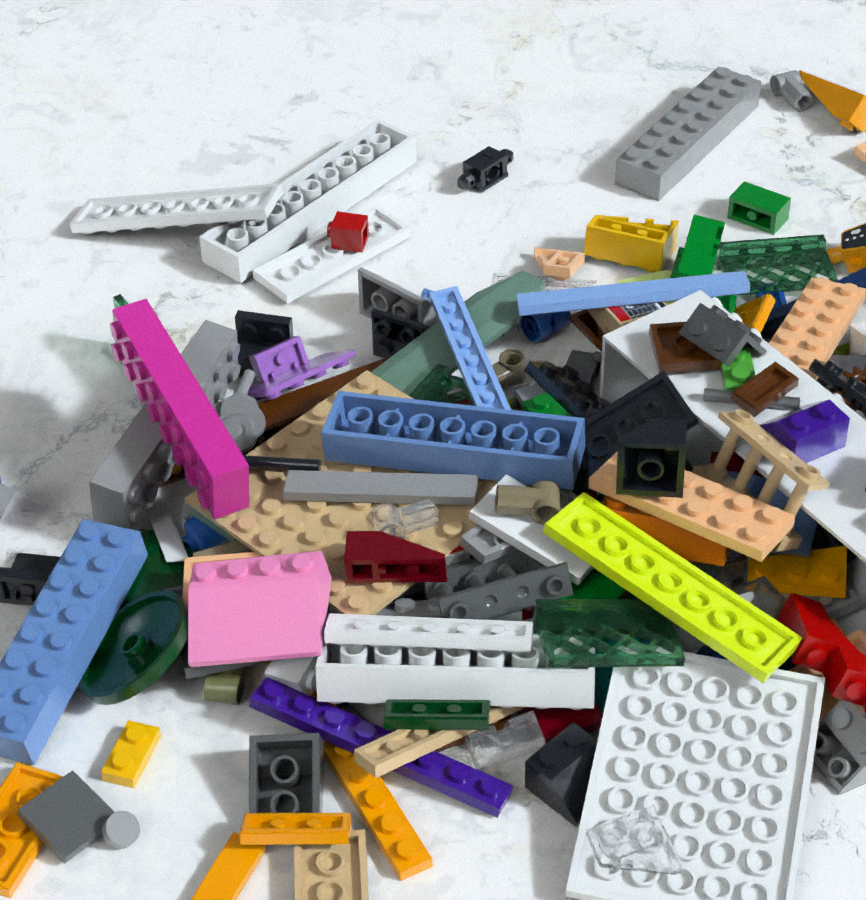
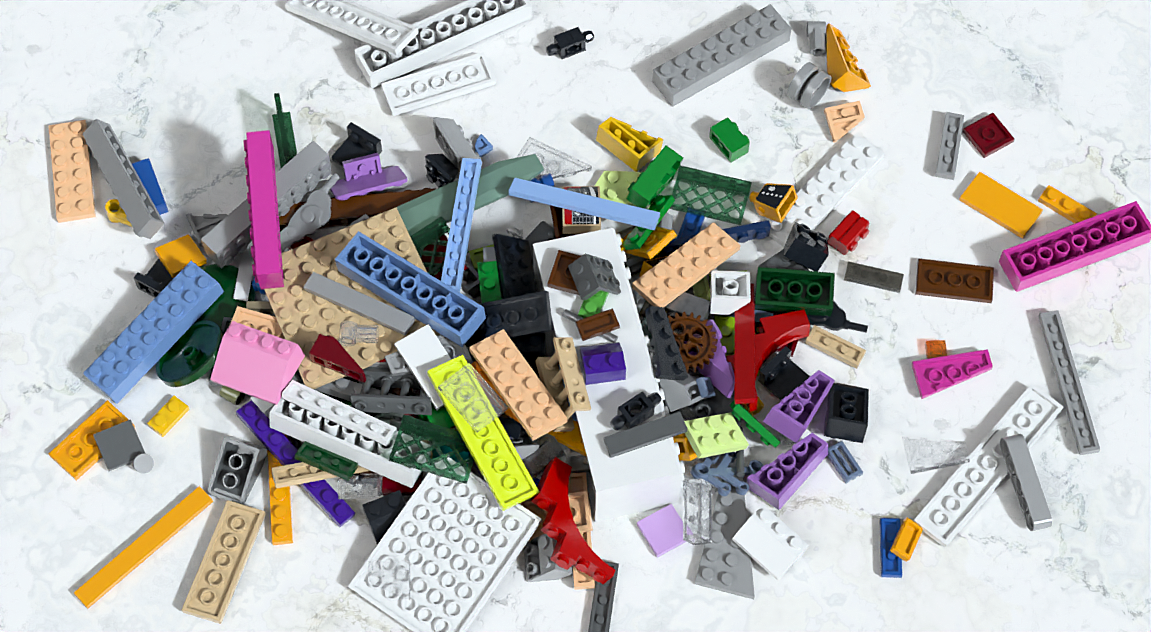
camera: 20 degrees right, 20 degrees up
(44, 538) = (179, 253): none -> light orange tile
(72, 498) = (203, 224): none -> light grey wing
(281, 463) = (308, 261): black bar -> none
(295, 828) = (228, 498): light orange tile -> none
(348, 231) = (450, 75): red brick -> none
(510, 368) = (490, 222): dark tan piece -> none
(538, 501) = (432, 352): dark tan piece -> none
(558, 263) = (574, 143): light nougat wing -> none
(633, 538) = (473, 397): none -> clear tile
(652, 459) = (499, 357): black slope -> none
(821, 126) = (809, 85): none -> light grey wheel

